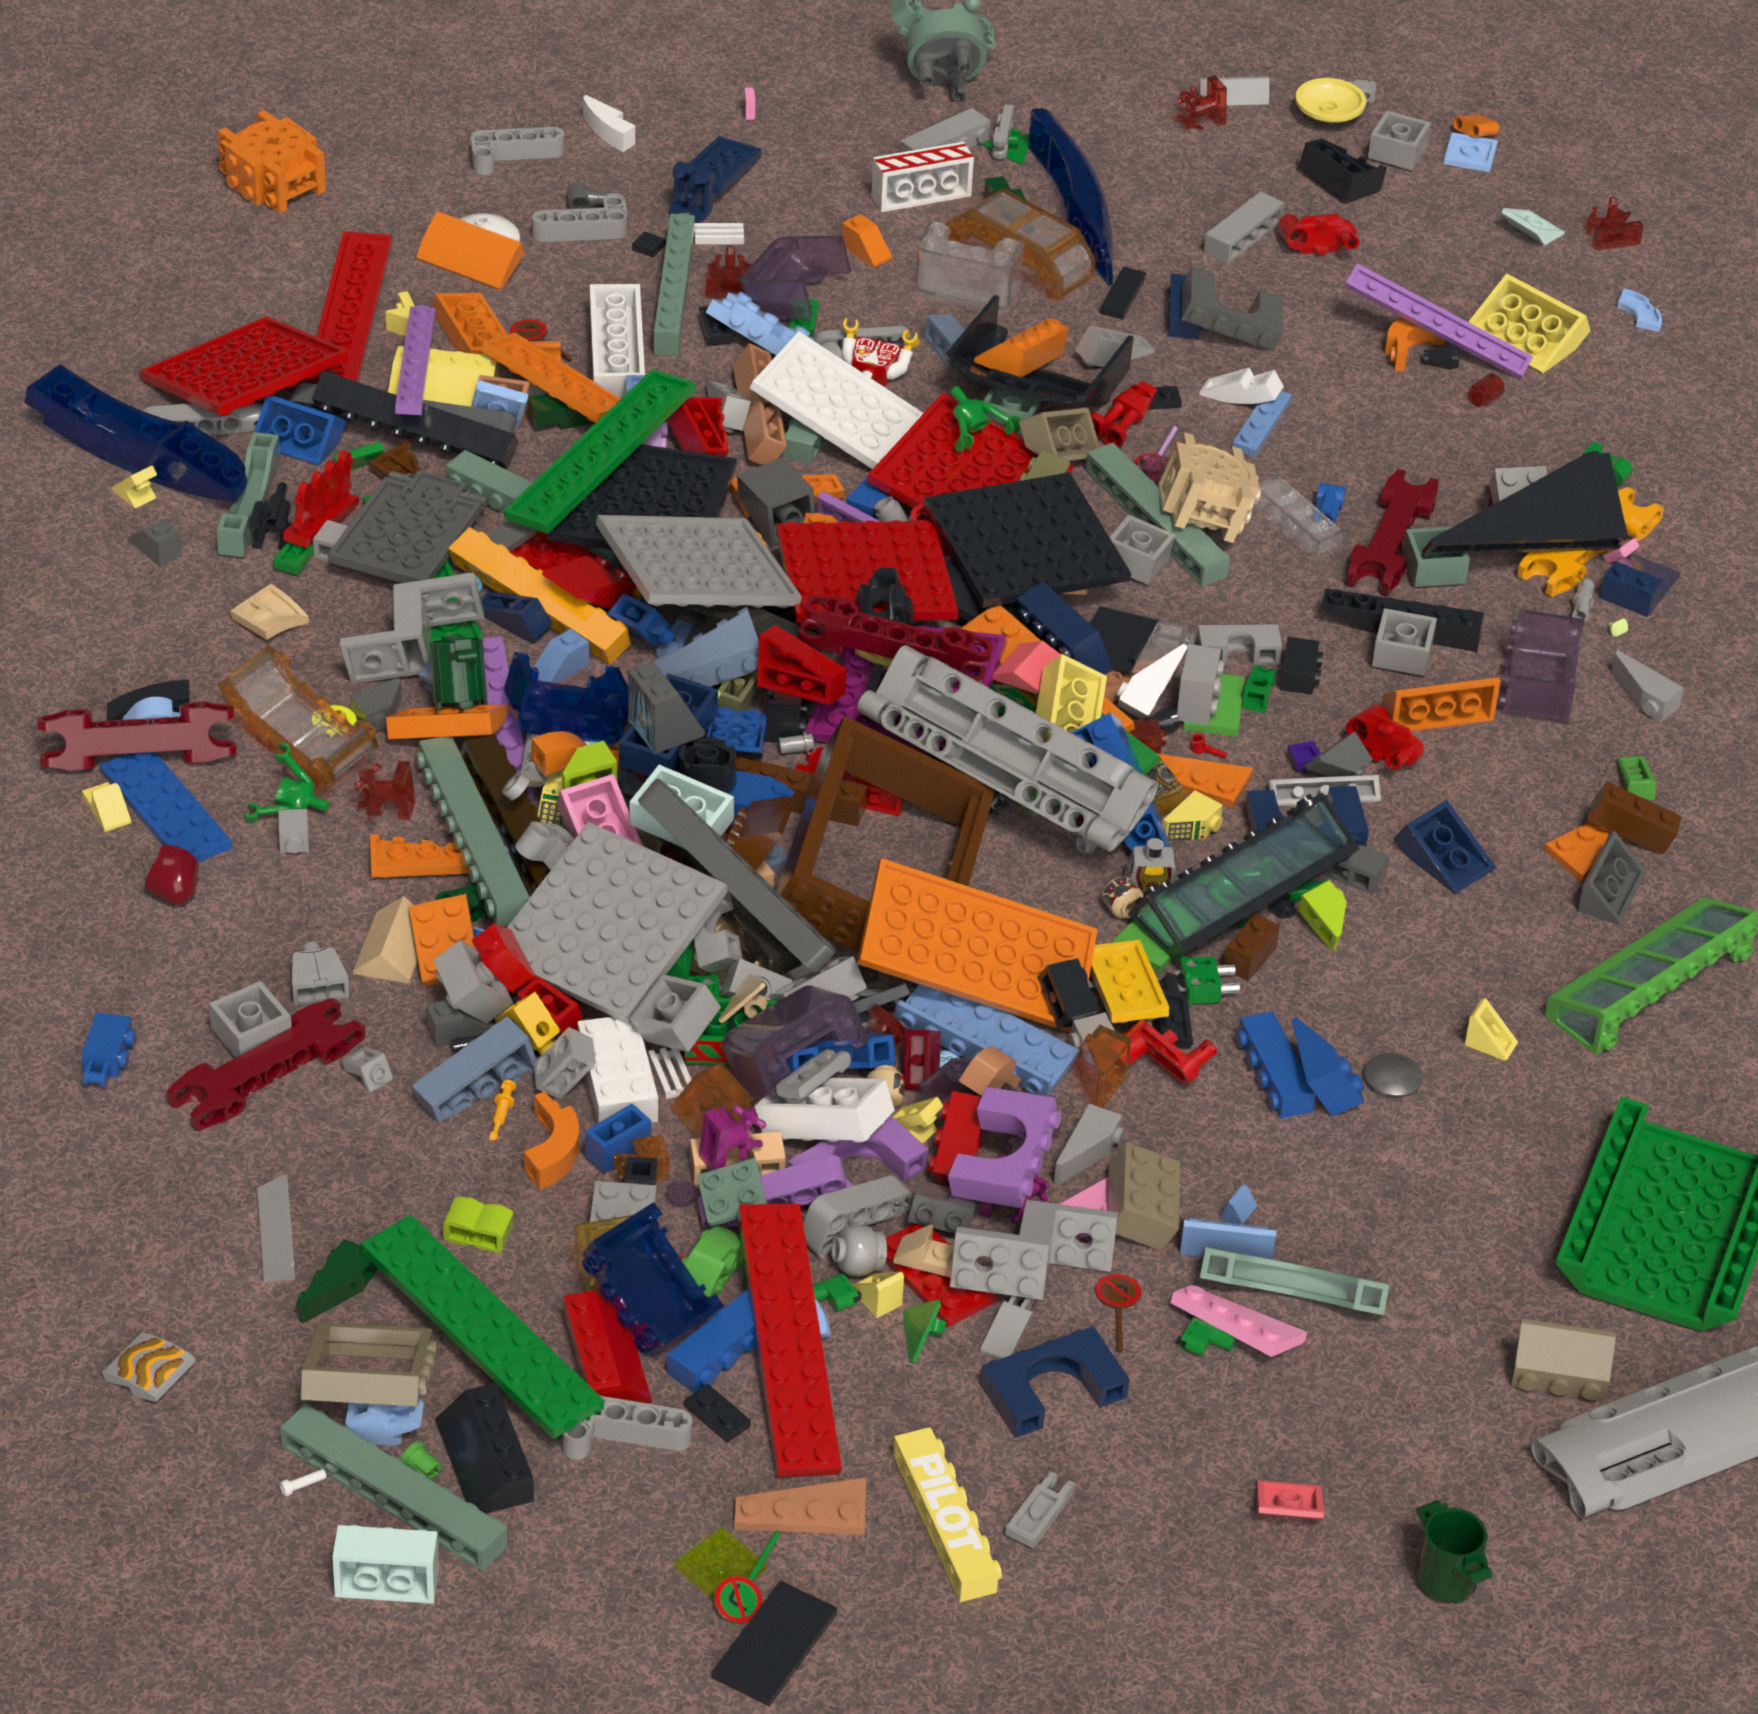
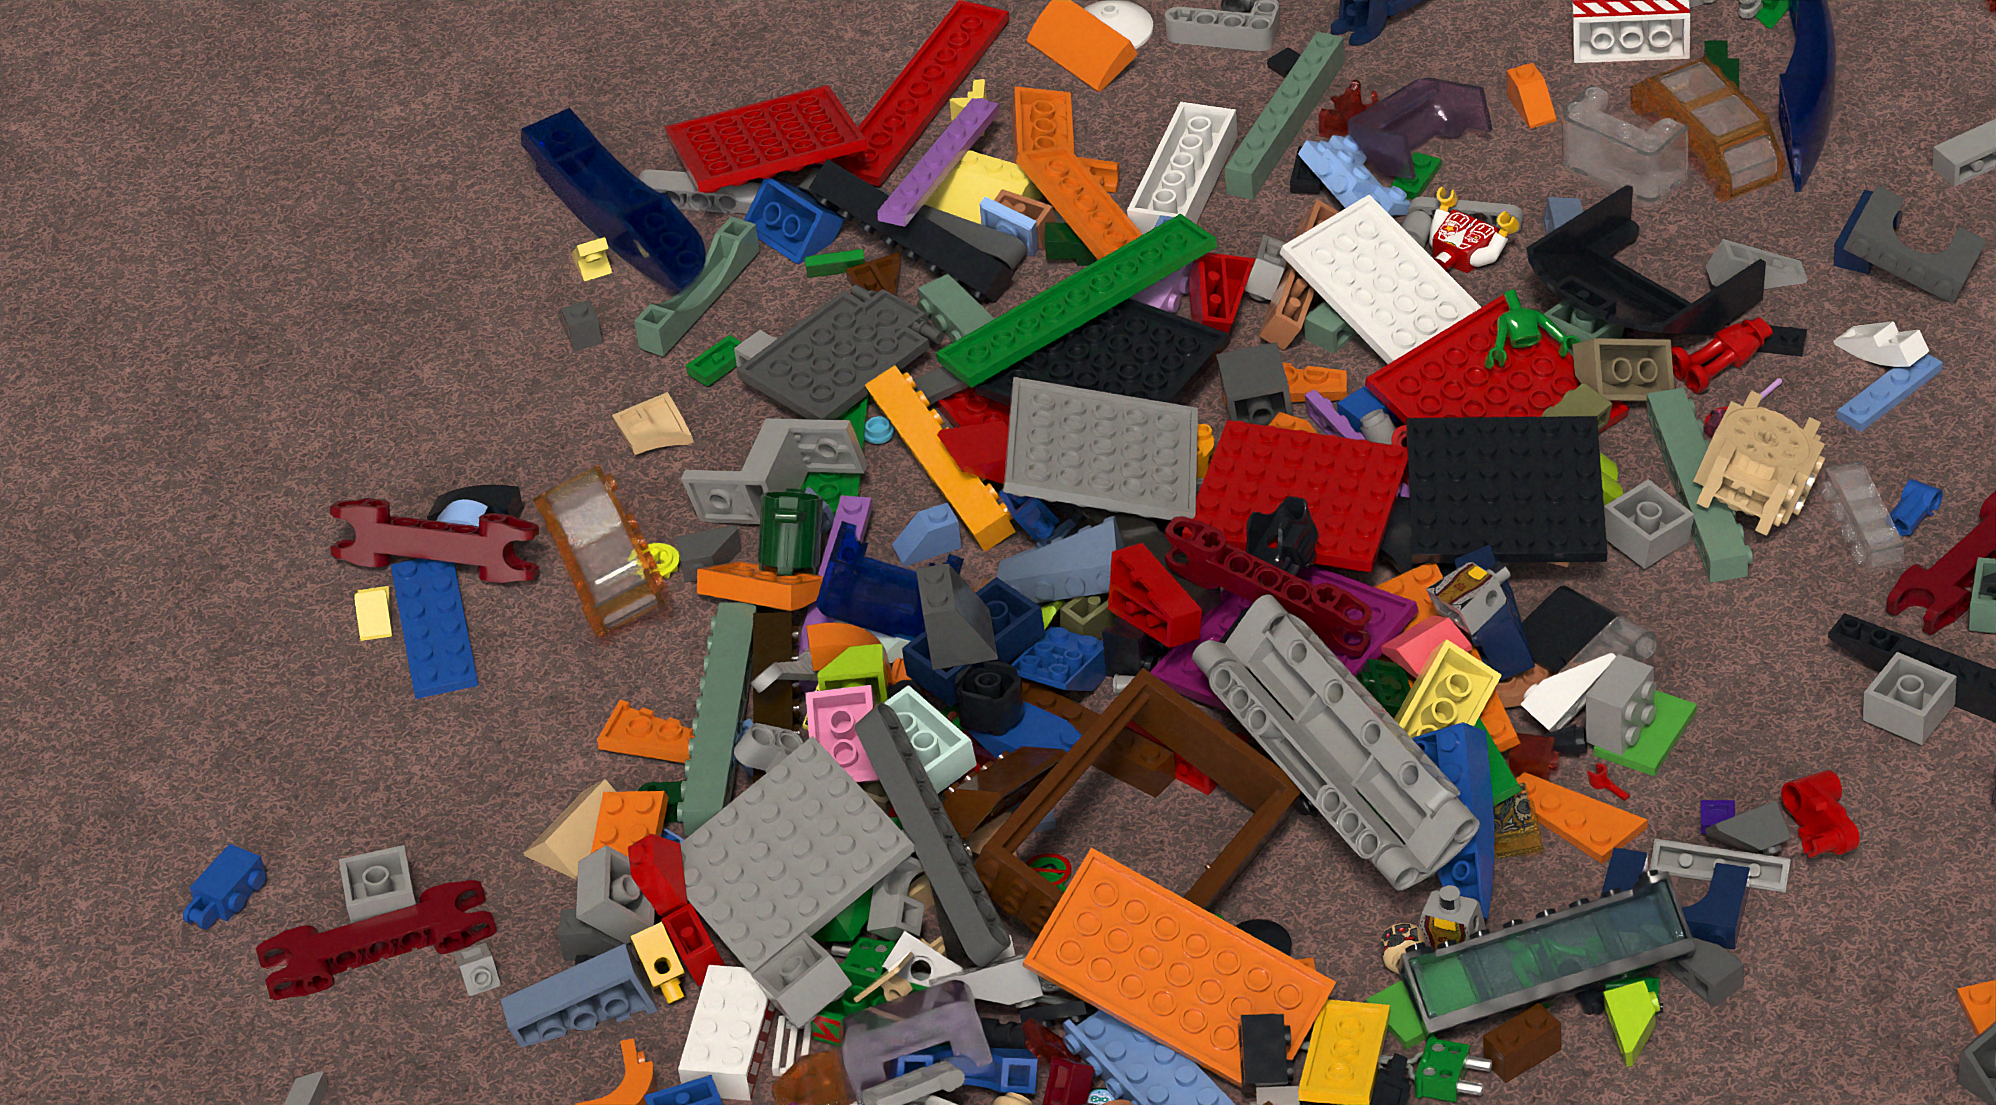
camera: 30 degrees right, 0 degrees up
(173, 875) = (390, 705): dark red piece -> none
(270, 516) = (710, 315): black plant -> none
(291, 793) = (562, 636): green piece -> none
(293, 831) = (542, 679): light grey brick -> none
(318, 975) = (477, 850): light grey torso -> none
(322, 500) = (774, 317): red fence -> none
(380, 791) = (667, 652): clear red piece -> none
(503, 1101) = (595, 1040): light orange piece -> none
(516, 614) = (906, 474): dark blue slope -> none
(533, 331) = (1104, 145): piece -> none
(564, 1063) = (670, 1010): light grey brick -> none
(719, 233) = (1373, 62): white tile -> none
(1028, 349) = (1641, 257): orange slope -> none
(1055, 620) = (1470, 595): none -> light grey torso
(1123, 293) = (1805, 203): black tile -> none
(1193, 818) = (1537, 868): light yellow slope -> none
(1258, 641) = (1685, 654): light grey arch -> none
(1259, 689) = (1705, 721): green leg -> none
(1300, 665) = (1769, 703): black brick -> none
(1443, 704) = (1913, 788): orange slope -> none
(1445, 848) = (1825, 969): dark blue slope -> none

